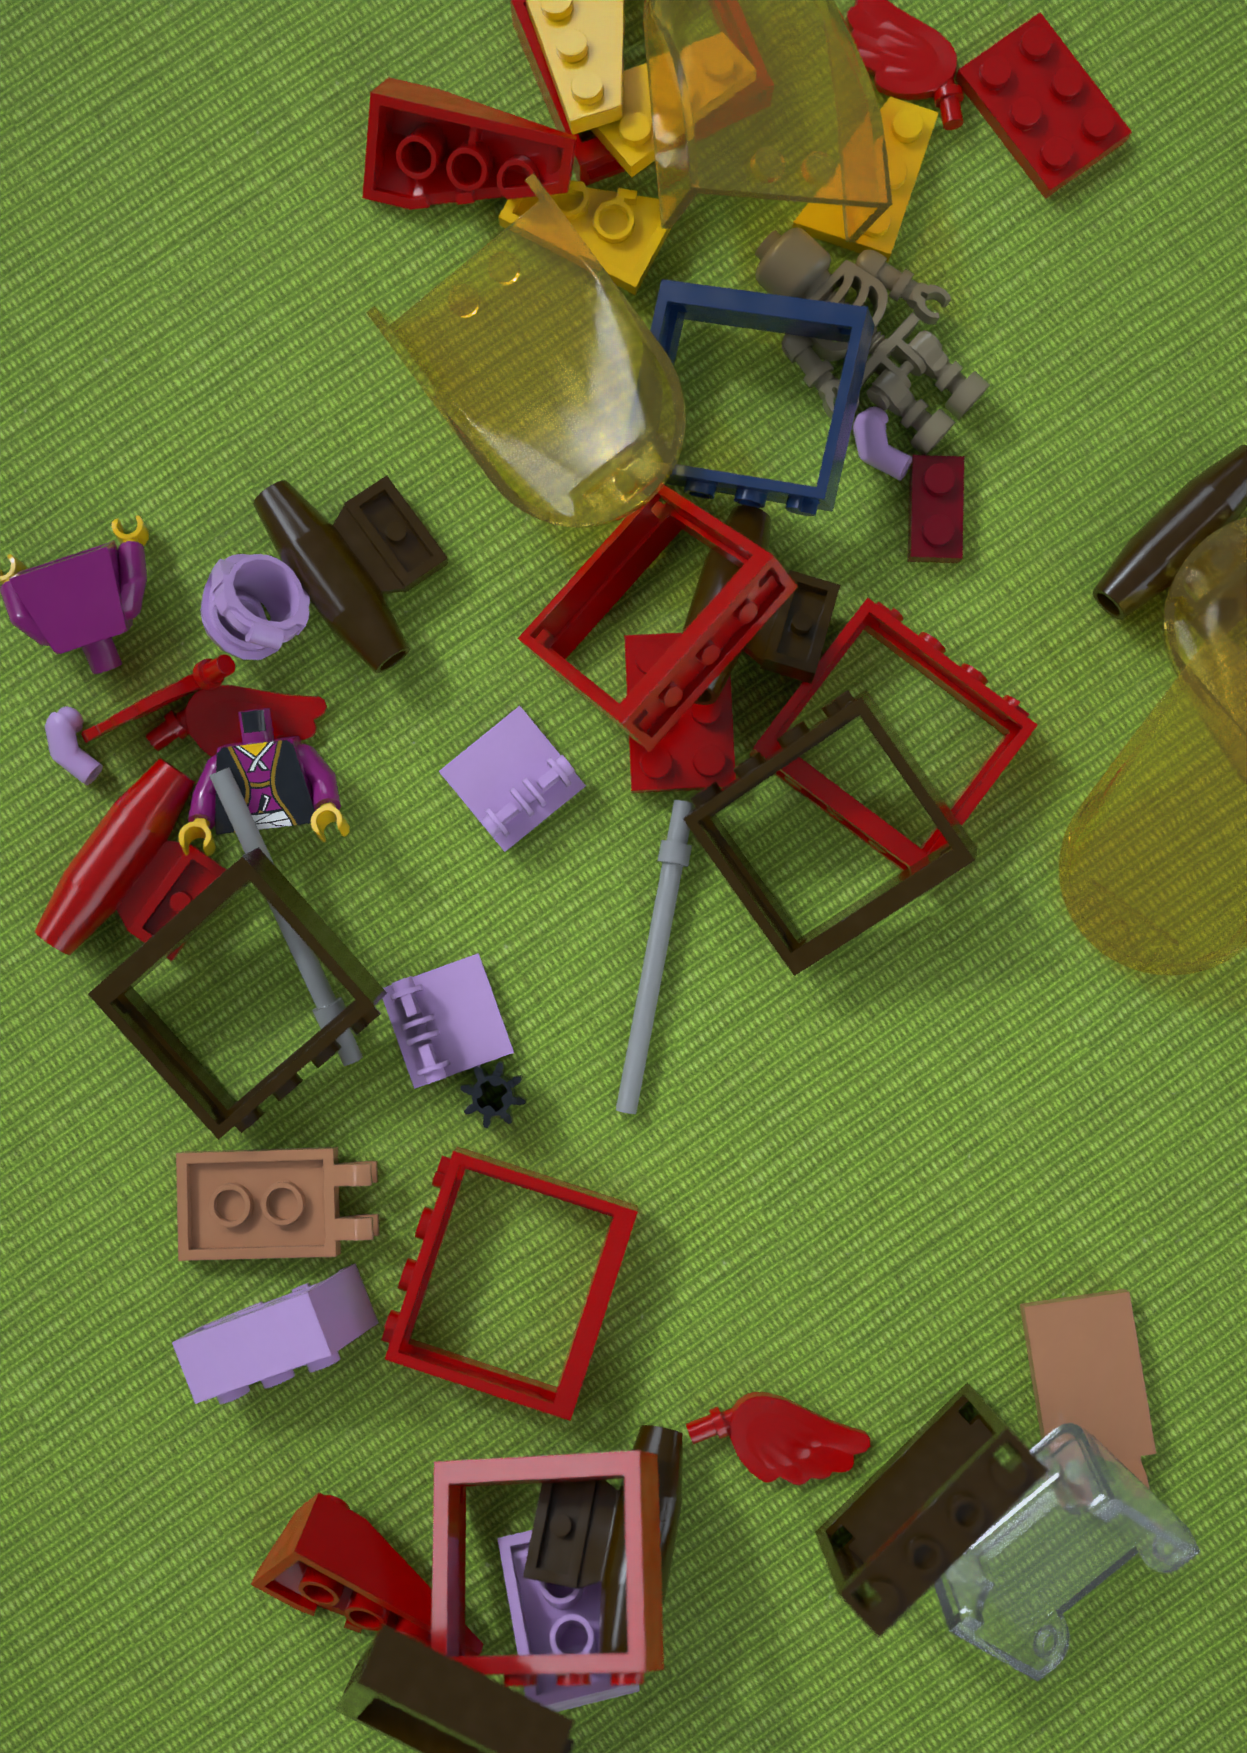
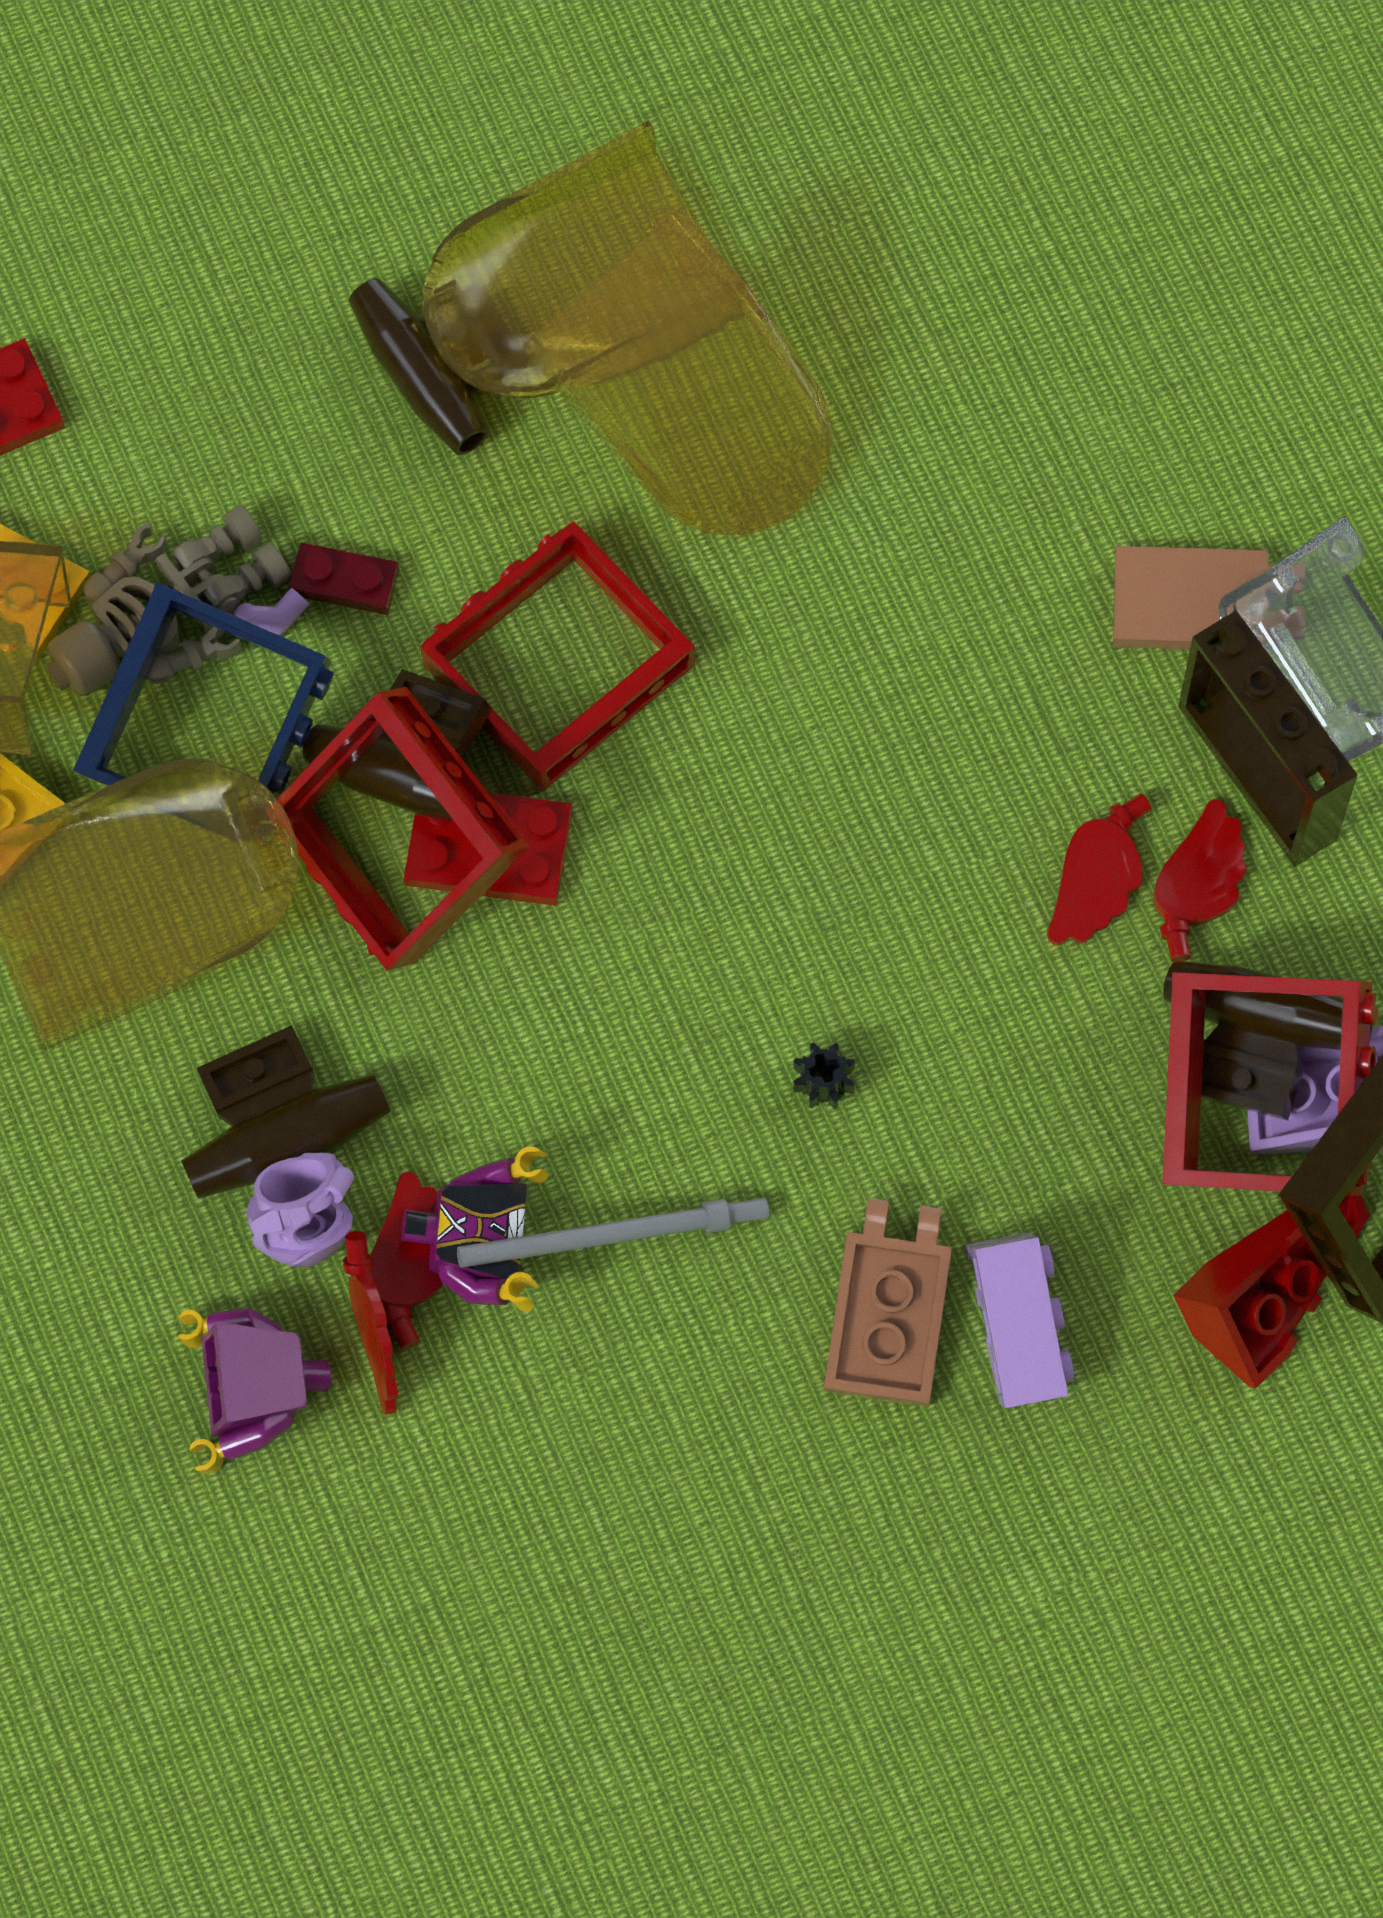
camera: 75 degrees left, 15 degrees down
(64, 748) = (392, 1429): lavender arm -> none
(130, 867) = (538, 1373): red plate -> none
(173, 1059) = (746, 1222): dark brown window -> none
(417, 1275) = (1038, 1017): red window -> none
(446, 1020) = (744, 1112): lavender hinge -> none
(512, 778) = (520, 1008): lavender hinge -> none
(673, 854) = (627, 873): light grey bar -> none
(765, 1332) = (1098, 874): none -> red animal
(805, 950) = (710, 687): dark brown window -> none

